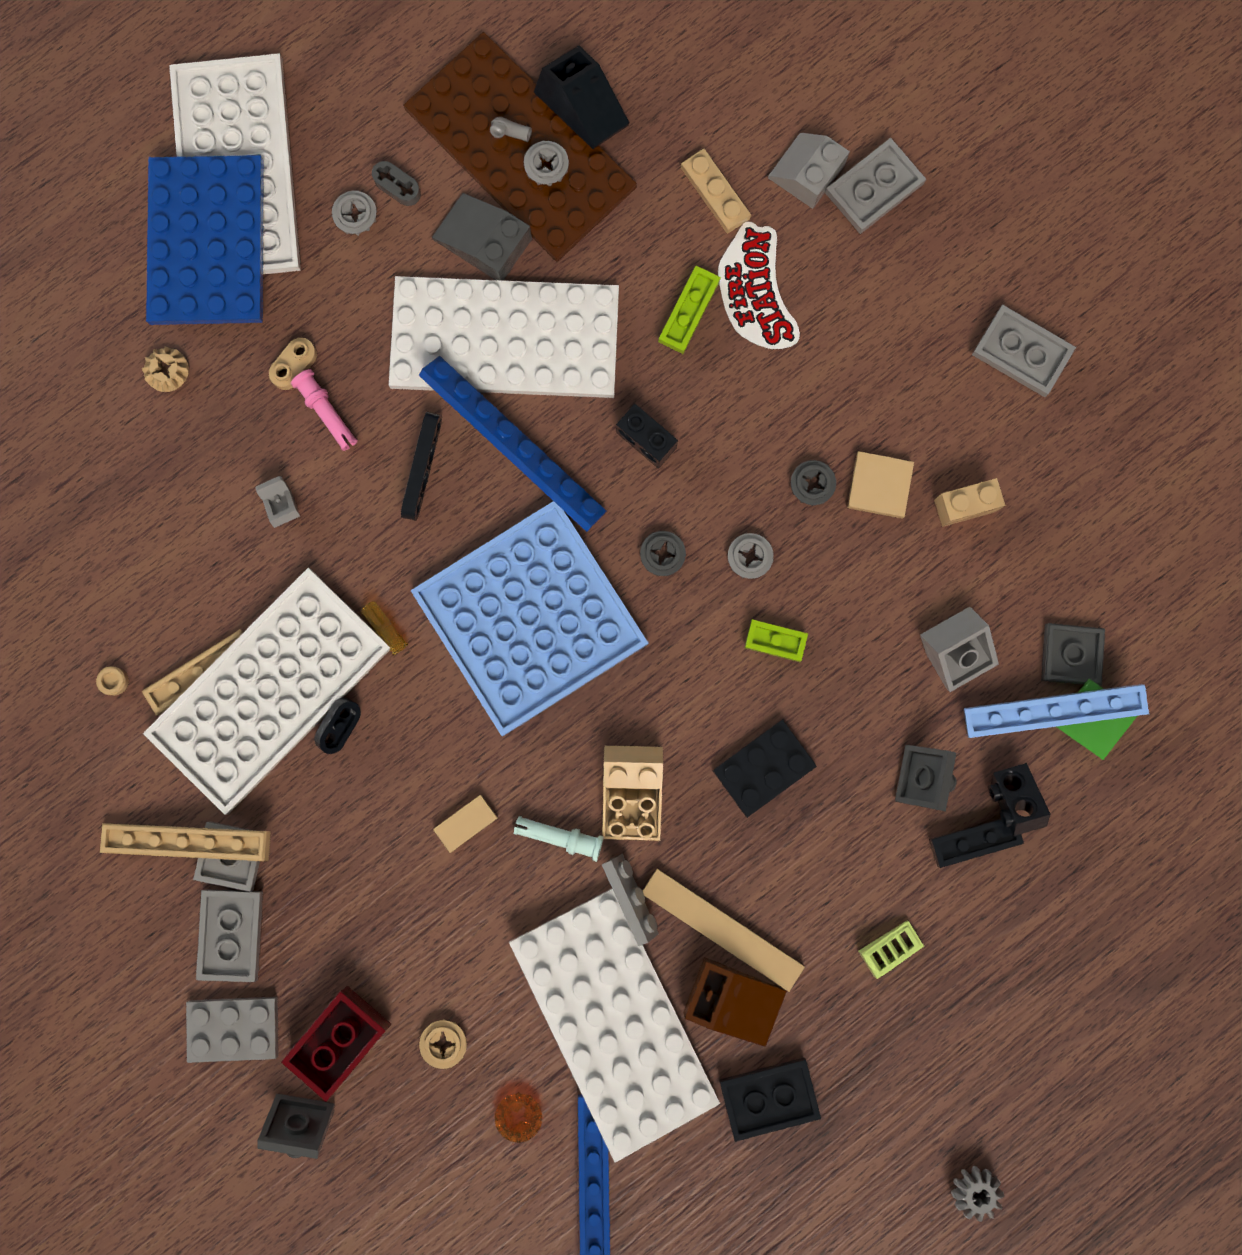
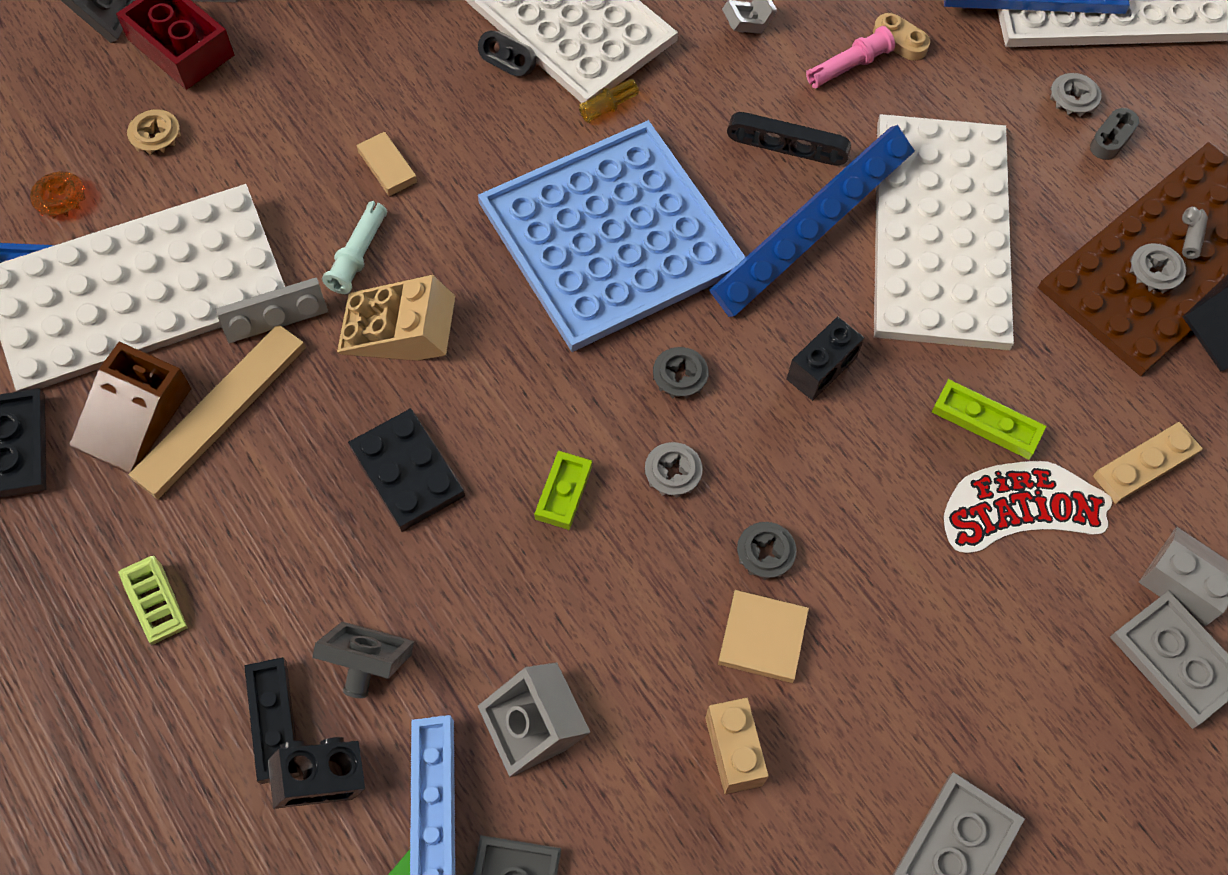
camera: 90 degrees right, 20 degrees down
(484, 236) = (1058, 213): dark grey slope -> none

